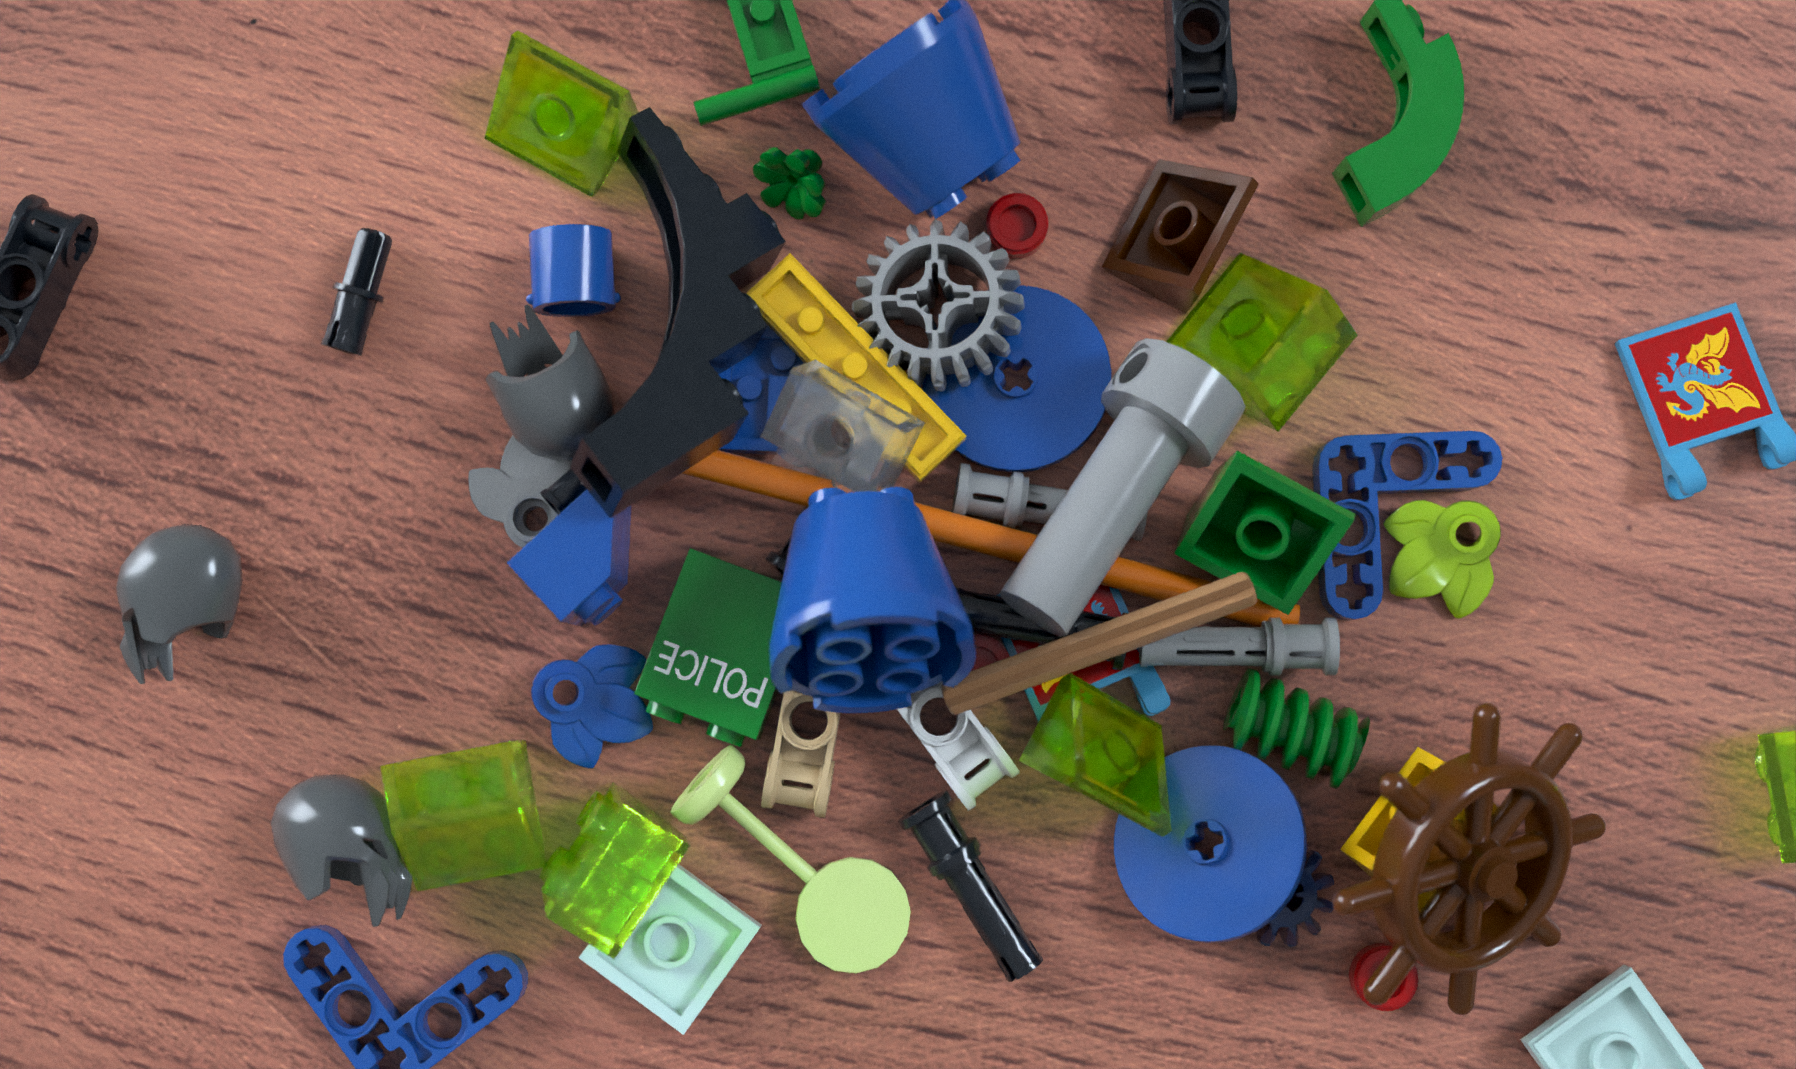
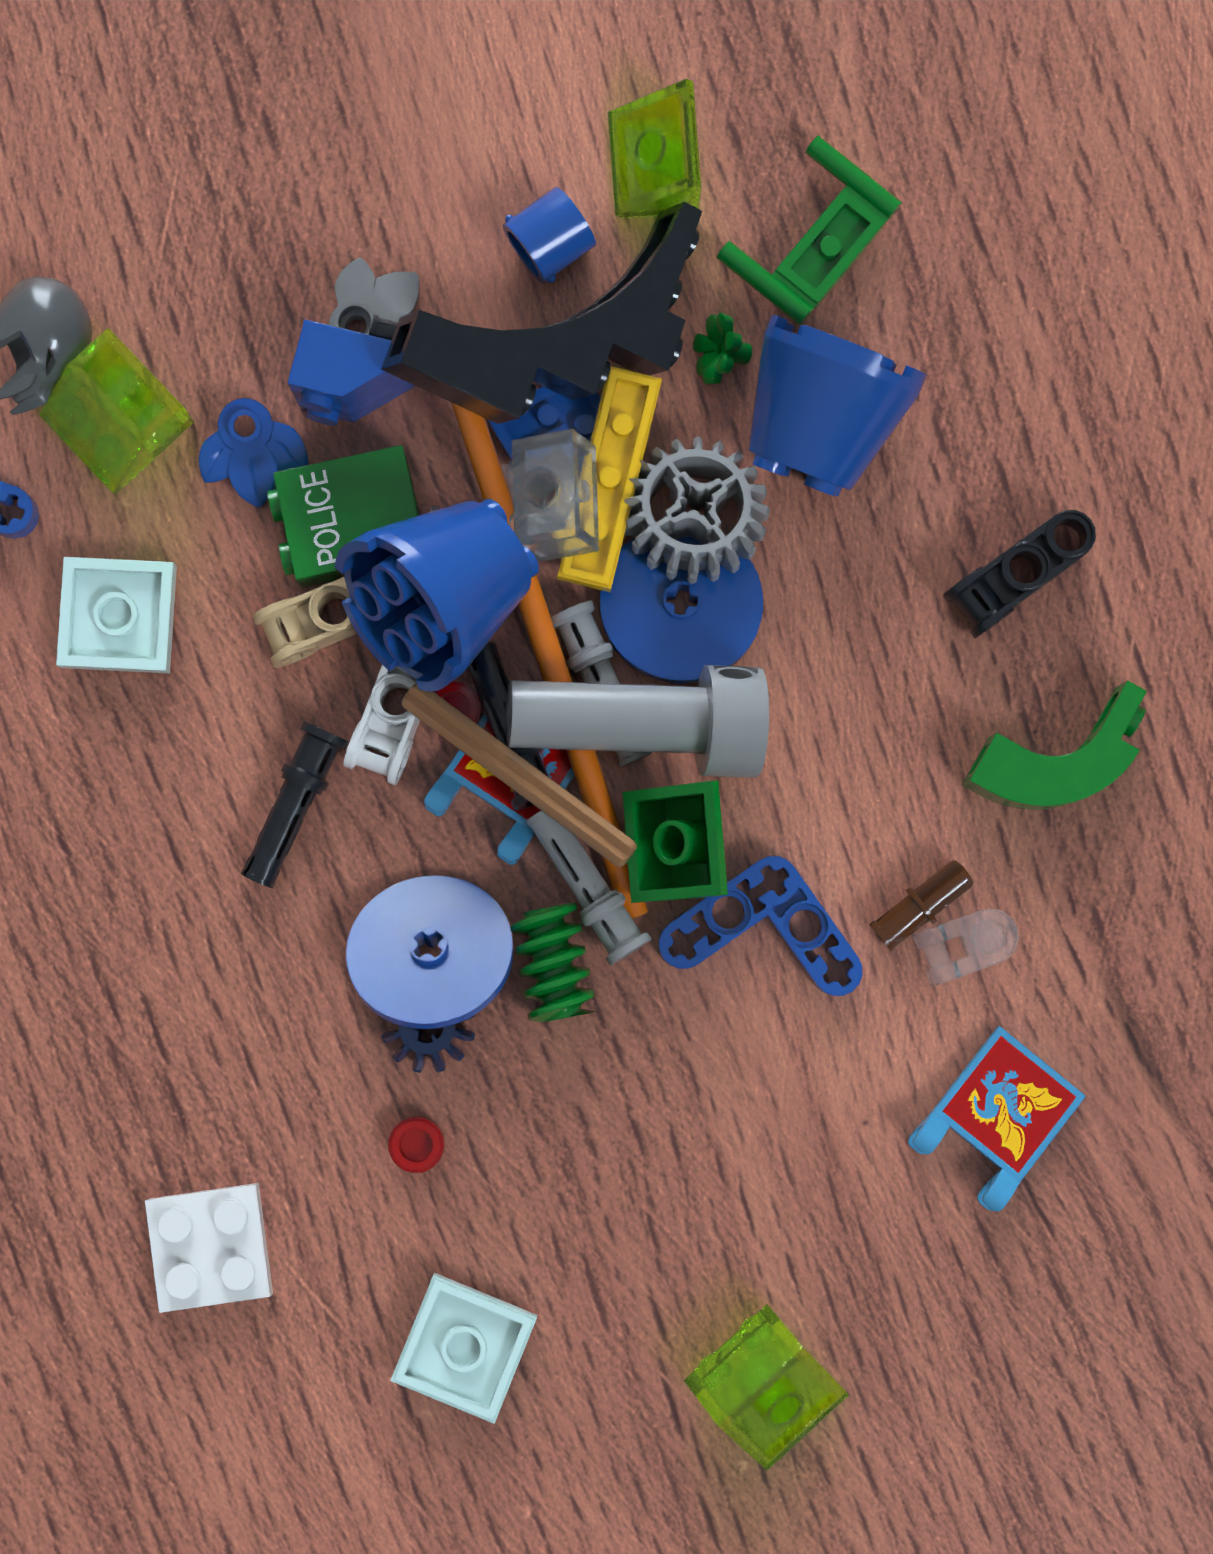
camera: 55 degrees right, 0 degrees up
(174, 584) = (142, 103): dark grey helmet -> none
(358, 292) = (436, 96): black axle -> none
(552, 404) = (449, 282): dark grey helmet -> none
(610, 869) = (138, 538): clear neon green slope -> none
(848, 911) = (218, 728): yellowish green piece -> none
(1017, 225) = (794, 532): red tile -> none
(1103, 753) = (445, 833): clear neon green slope -> none
(1179, 231) = (866, 651): reddish brown slope -> none
(1266, 336) = (824, 760): clear neon green slope -> none
(1436, 561) = (747, 990): lime plate -> none
(1448, 848) = (535, 1116): reddish brown brick -> none
(1458, 337) = (922, 904): none -> reddish brown axle
(1528, 297) = (985, 936): none -> clear plate

